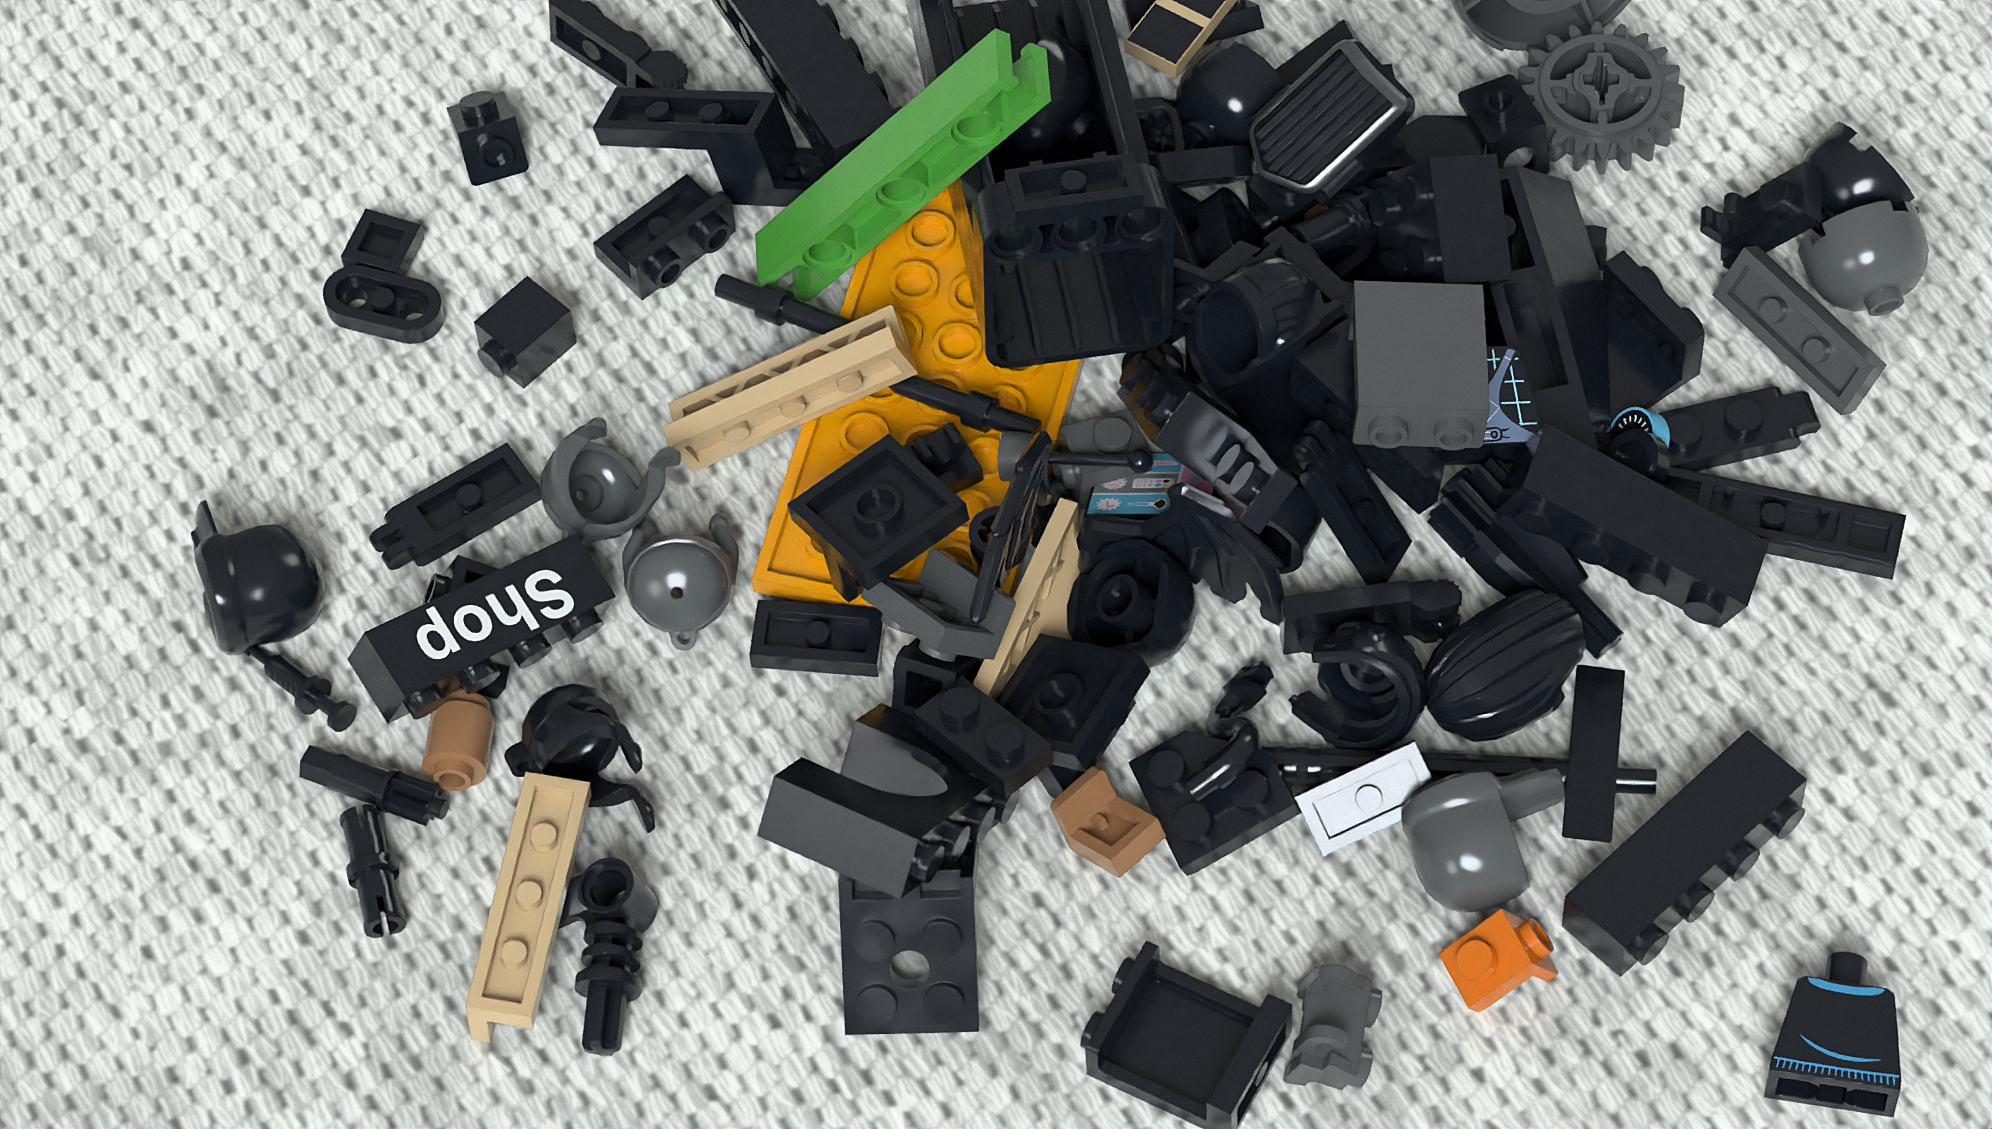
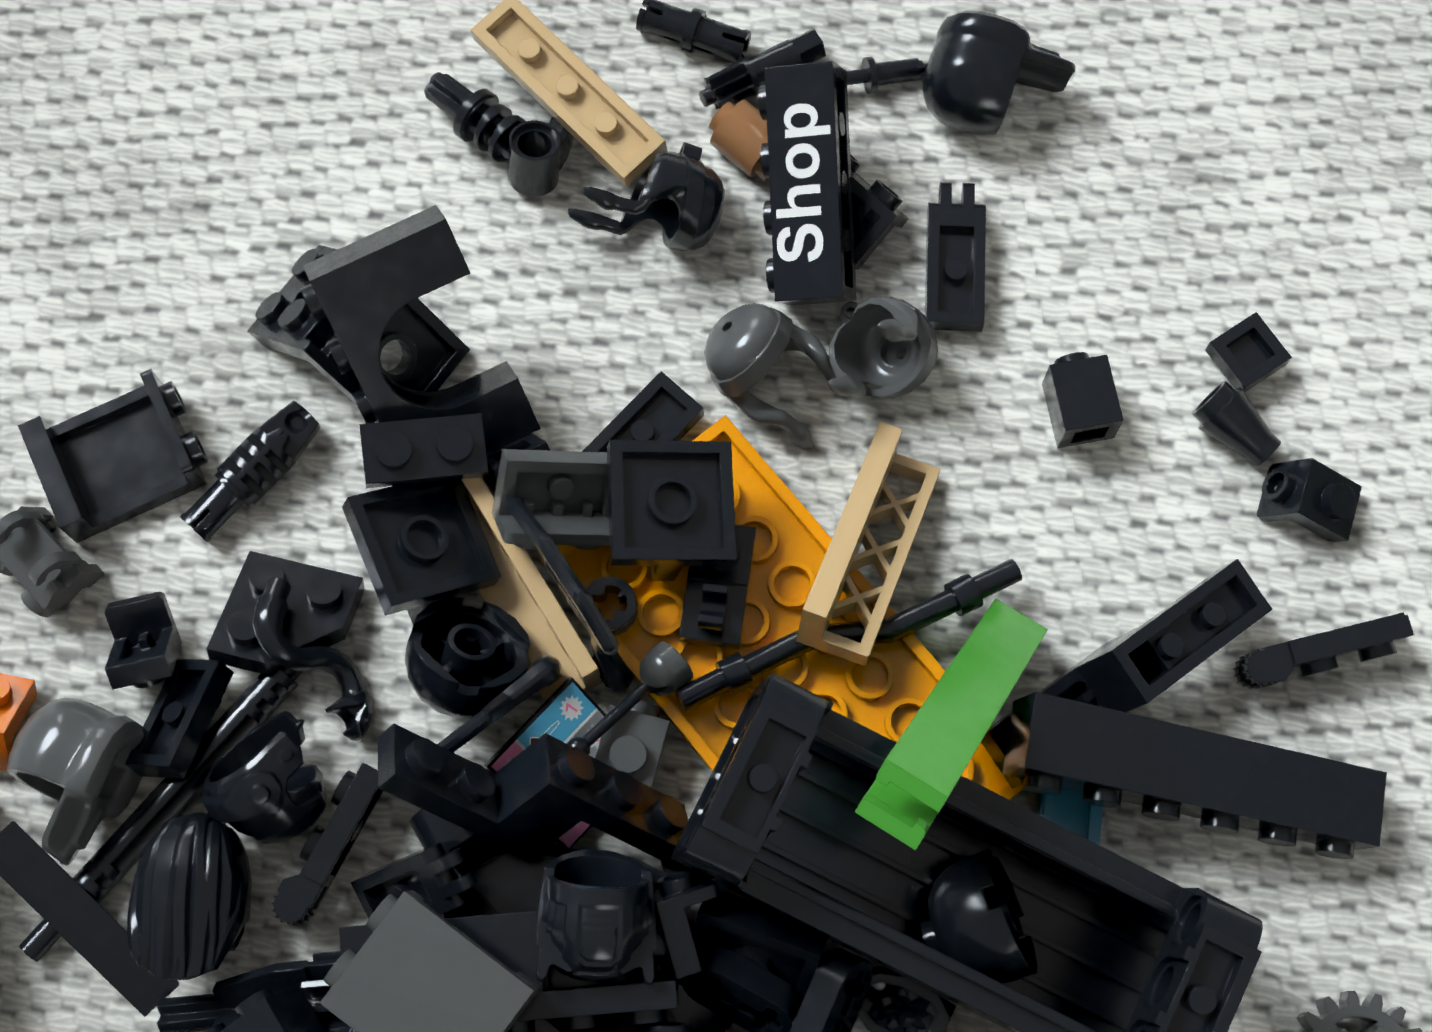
camera: 125 degrees right, 15 degrees up
(387, 304) = (1187, 323): black plate -> none
(455, 224) = (1236, 423): none -> black cone
(666, 236) = (1101, 566): black bracket -> none
(1103, 824) = (313, 521): medium nougat bracket -> none
(1106, 920) = (253, 468): none -> black hinge
(1334, 877) = (144, 641): none -> black bracket

